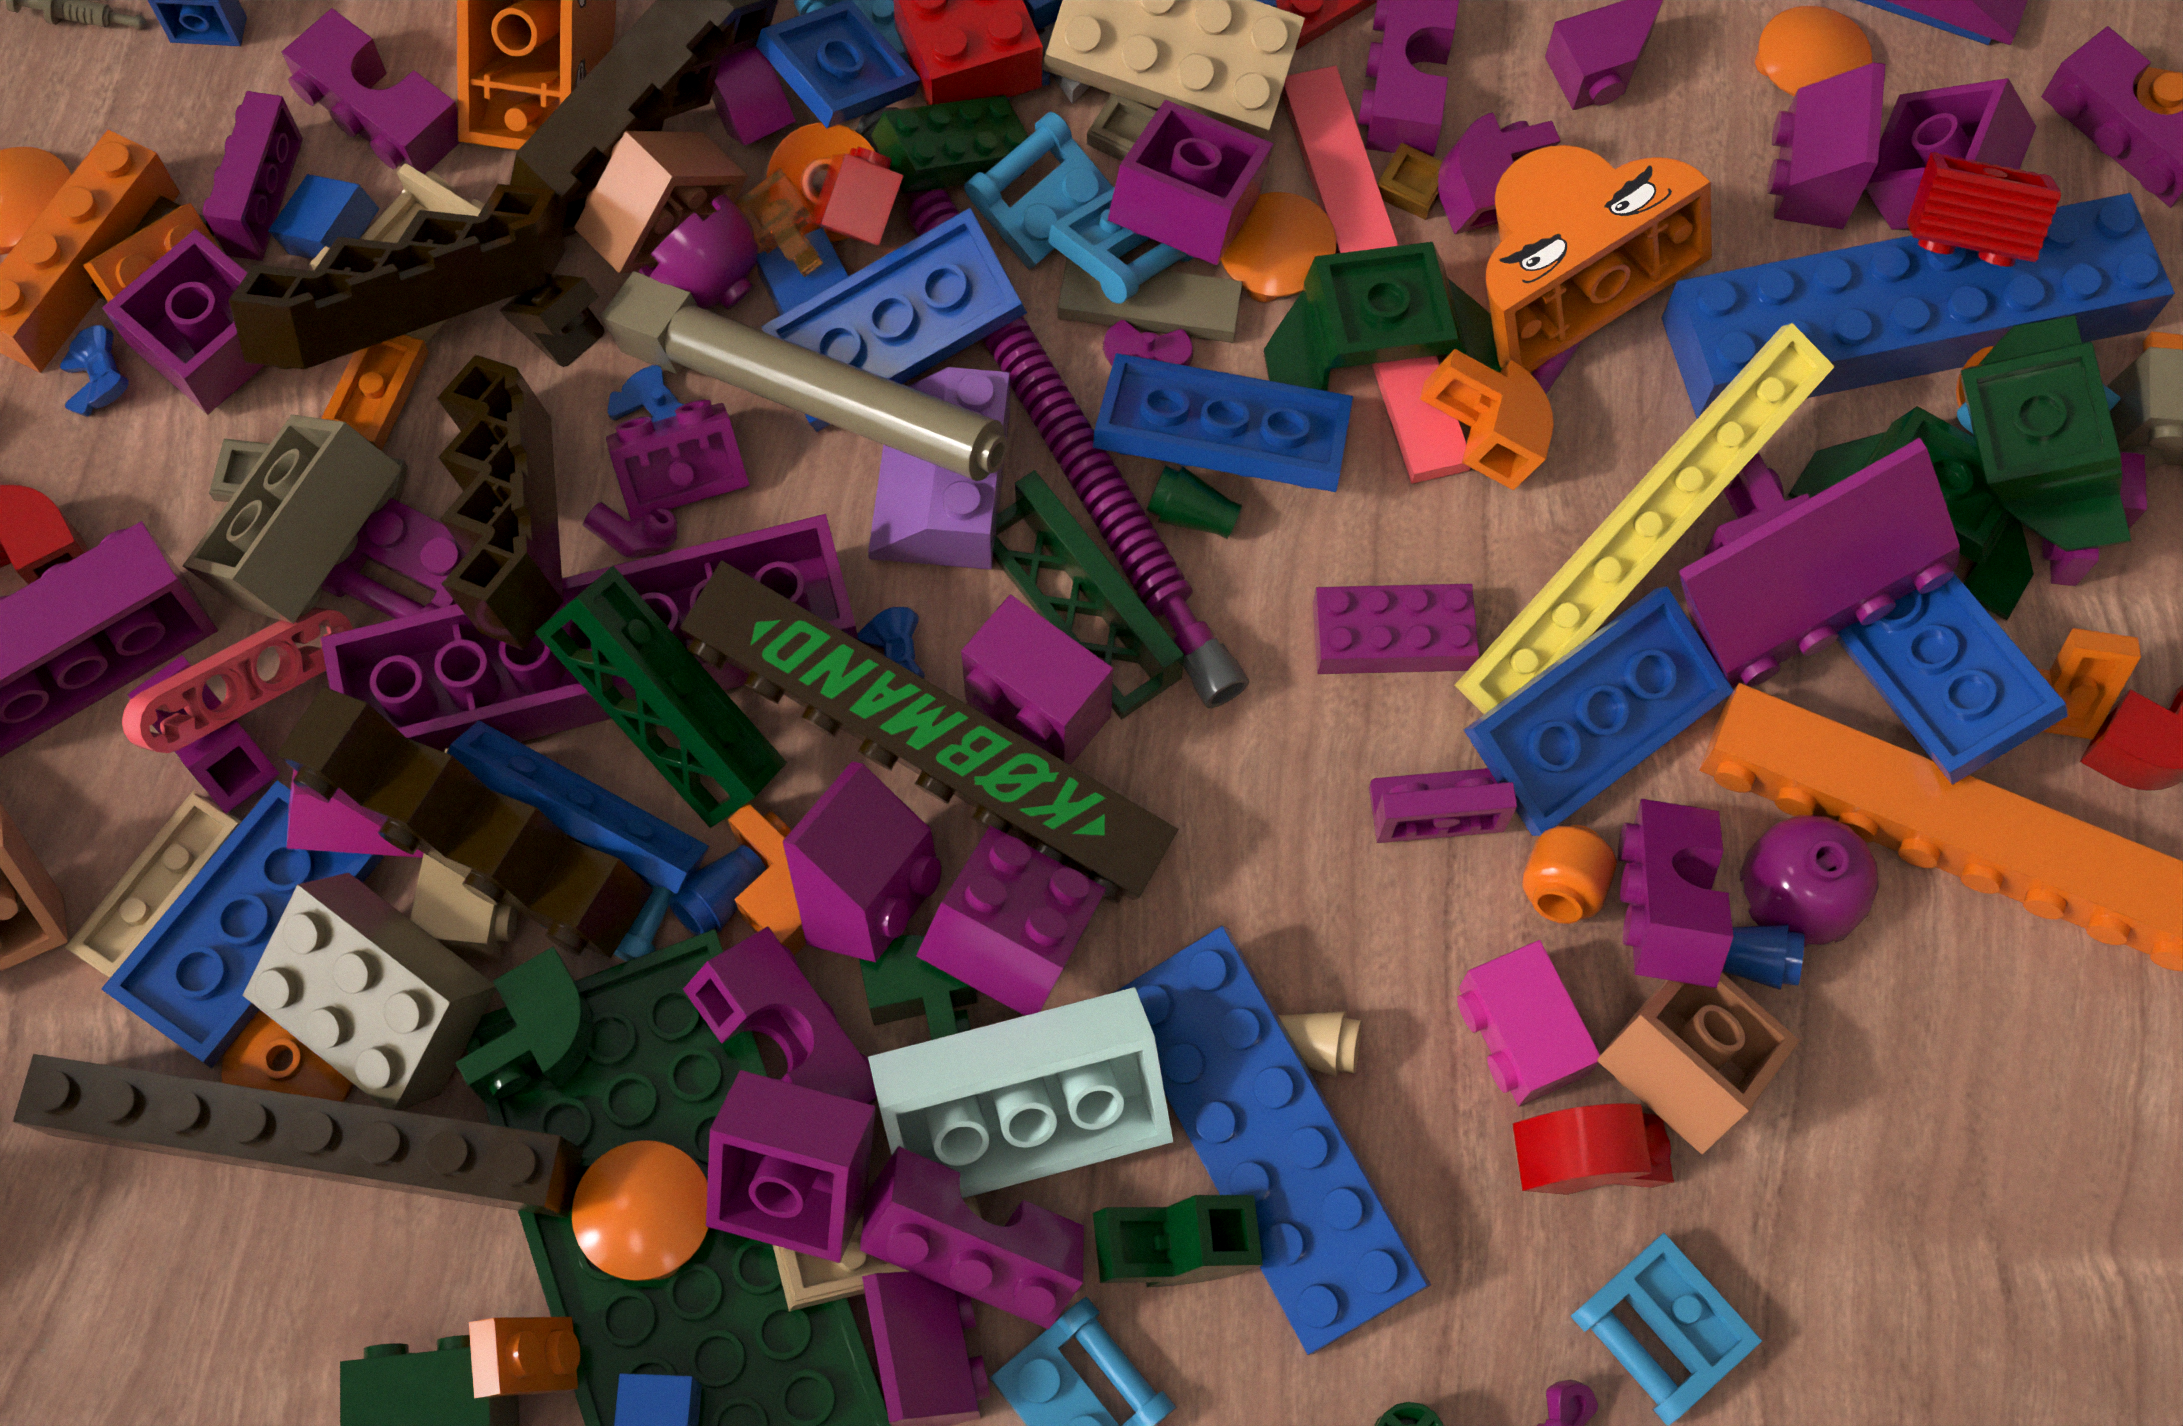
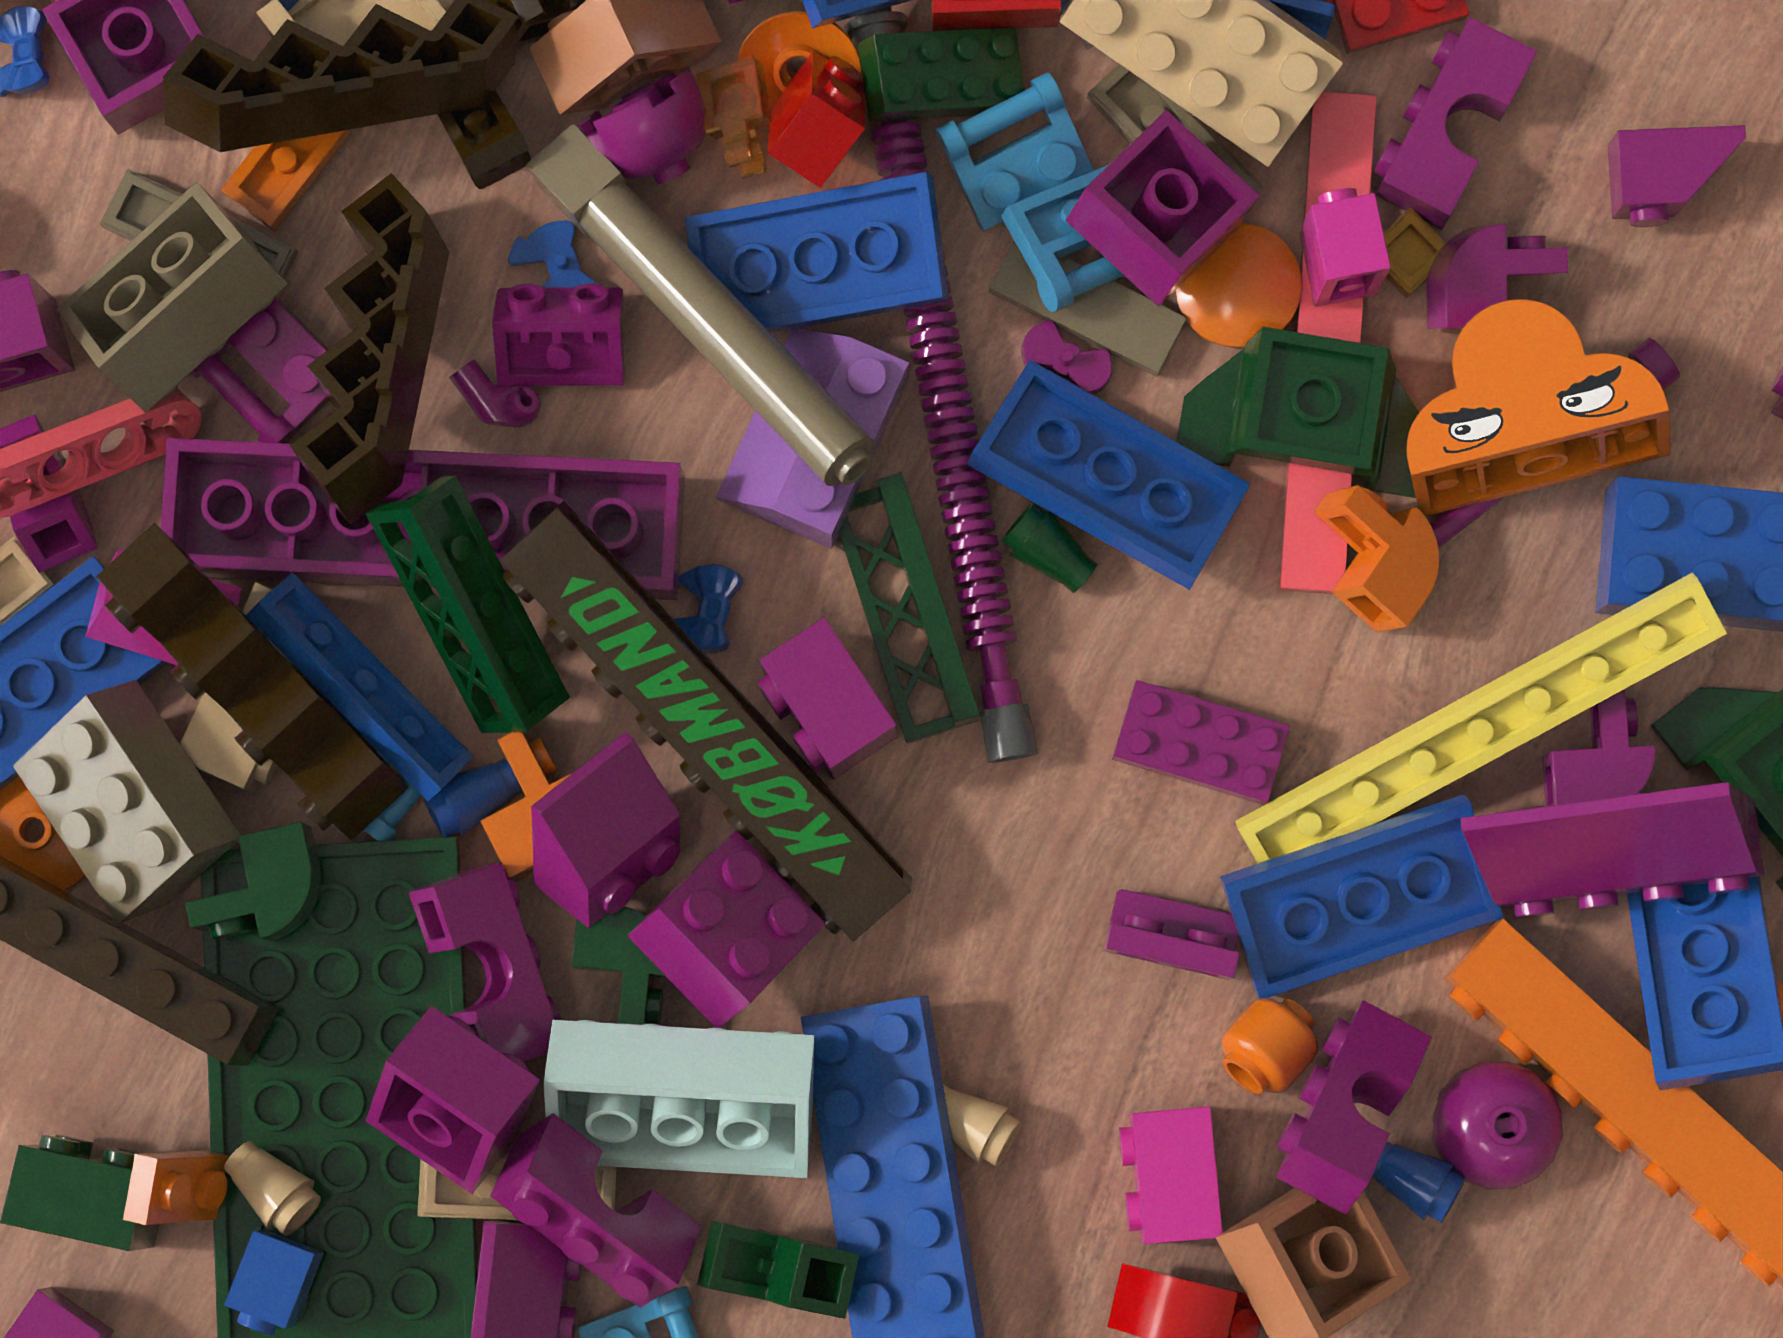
camera: 25 degrees right, 15 degrees up
(628, 1330) = (272, 1188): none -> tan cone
(641, 1210) = (314, 1082): orange dish -> none
(786, 283) = (729, 189): blue piece -> none
(1363, 166) = (1344, 247): none -> dark pink brick

